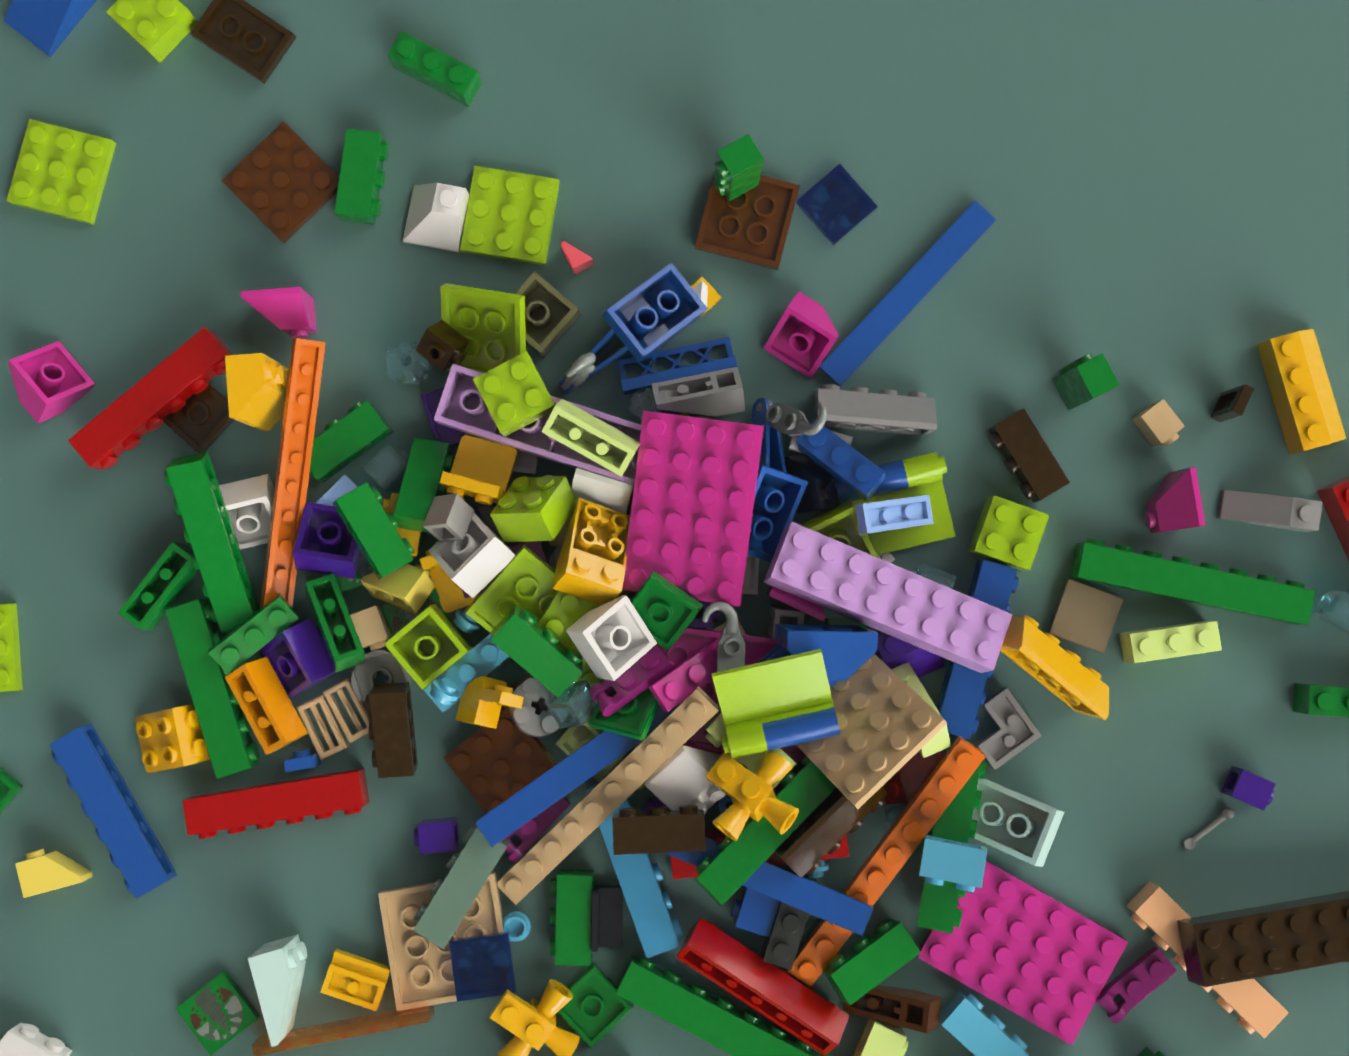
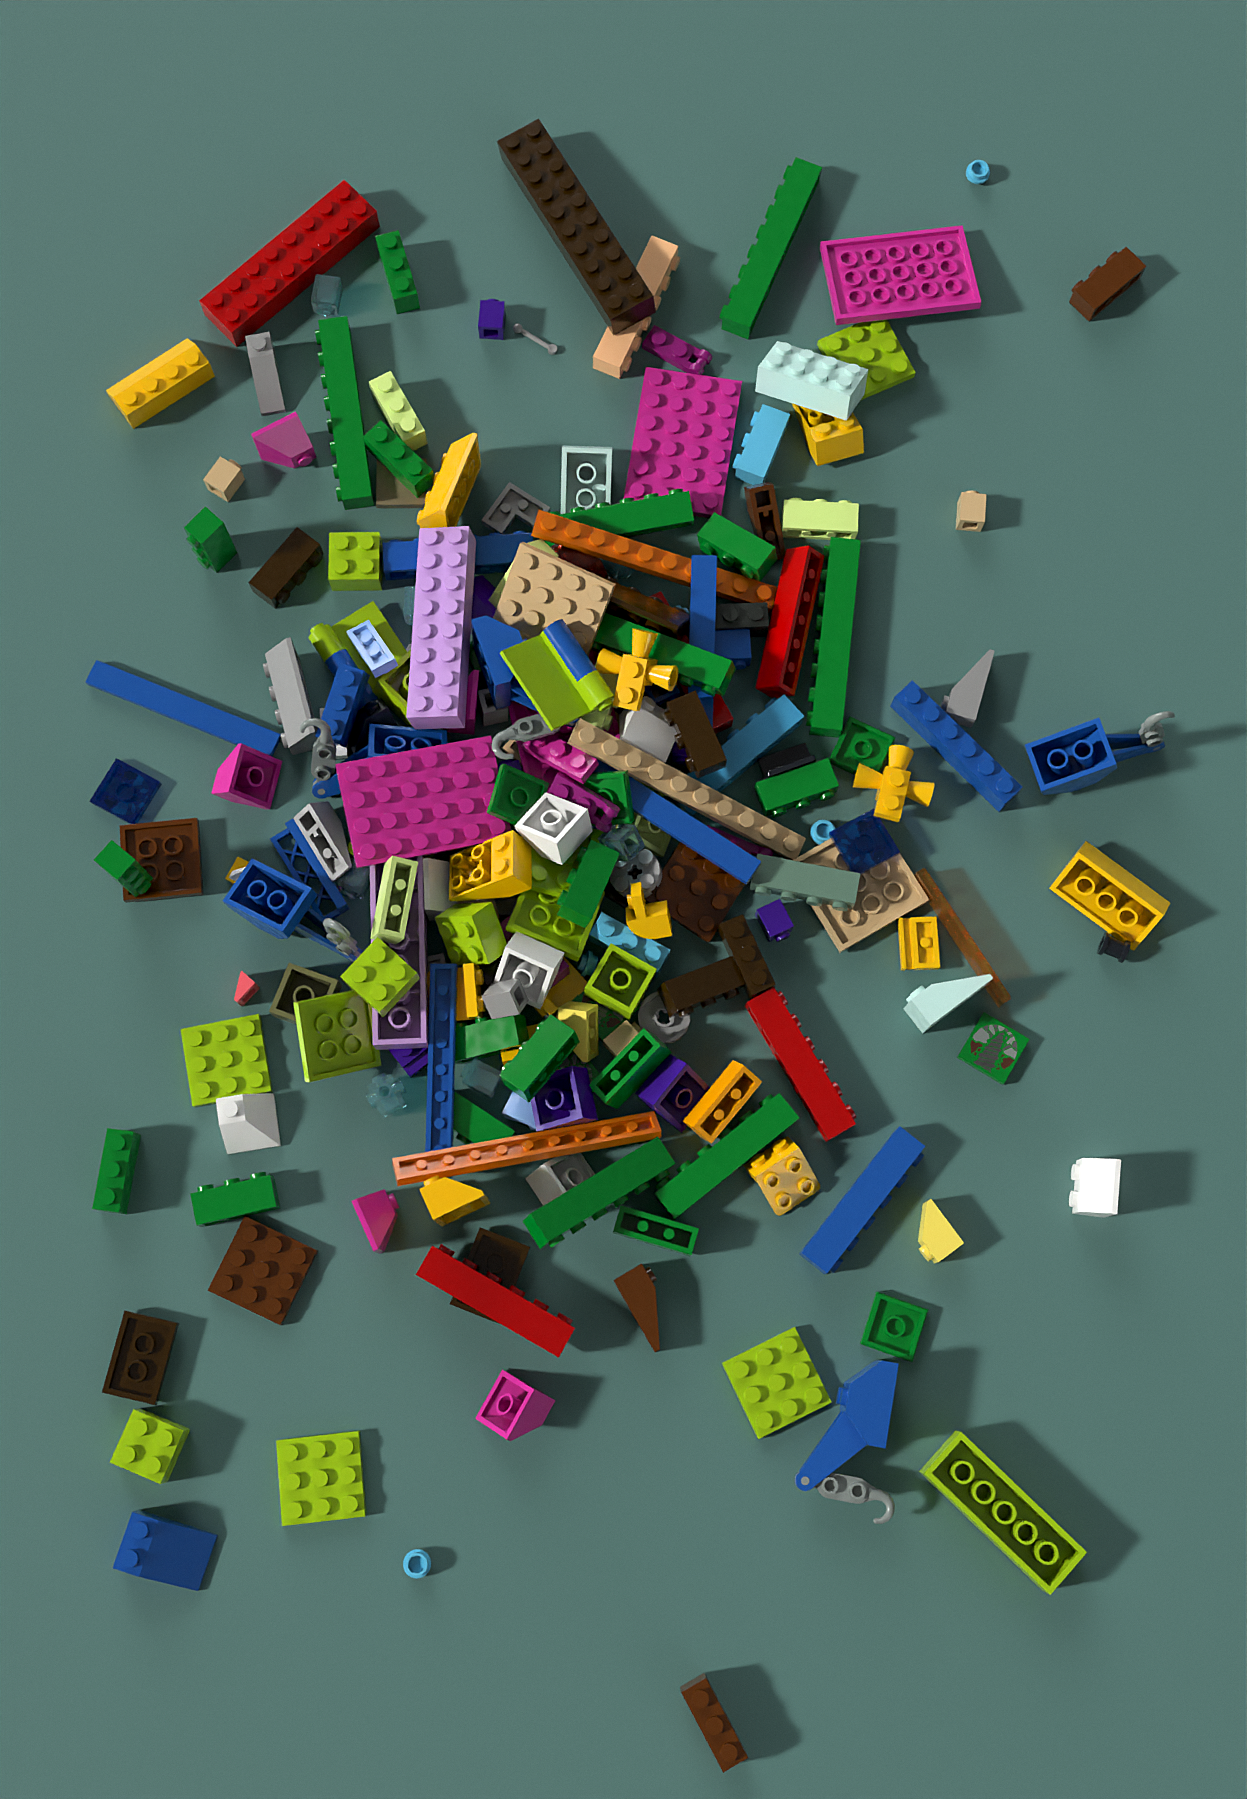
camera: 110 degrees left, 10 degrees down
(108, 546) = (640, 1296): none -> reddish brown slope
(253, 634) = (665, 1133): green plate -> none
(301, 760) = (757, 1056): blue plate -> none
(322, 753) = (708, 1068): tan tile -> none
(339, 714) = (686, 1052): tan tile -> none
(409, 791) = (747, 955): none -> dark brown brick
(417, 431) = (441, 1057): none -> blue tile
(442, 346) = (361, 1064): dark brown brick -> none
(444, 691) = (650, 949): medium azure plate -> none
(953, 863) = (630, 504): medium azure brick -> none
(1111, 622) = (399, 459): none -> green brick
(1232, 403) = (189, 427): dark brown tile -> none

